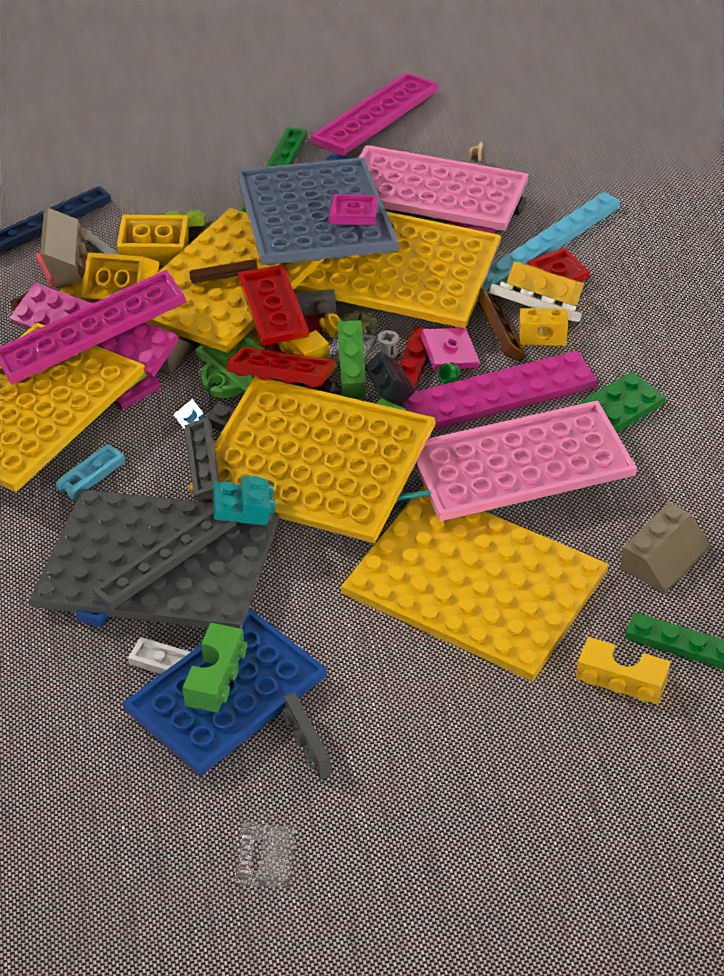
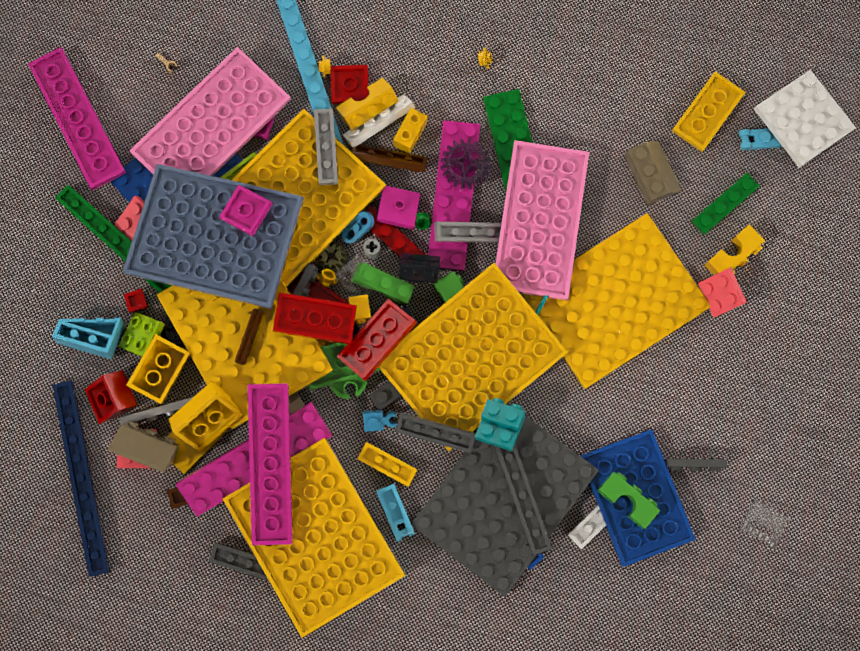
camera: 70 degrees left, 35 degrees up
(107, 224) = (110, 396): none -> red slope
(145, 445) = (387, 464): none -> yellow plate
(164, 189) = (92, 336): none -> medium azure wedge
(217, 208) = (136, 300): none -> red plate
(404, 323) = (358, 227): none -> dark azure plate
(456, 398) = (467, 232): none -> light grey plate
(469, 258) = (325, 147): none -> light grey plate
(538, 373) = (458, 163): none -> clear purple gear
(556, 668) = (722, 292): none -> coral plate
(561, 242) = (324, 66): none -> yellow plate
(676, 356) = (485, 58): none -> yellow plate

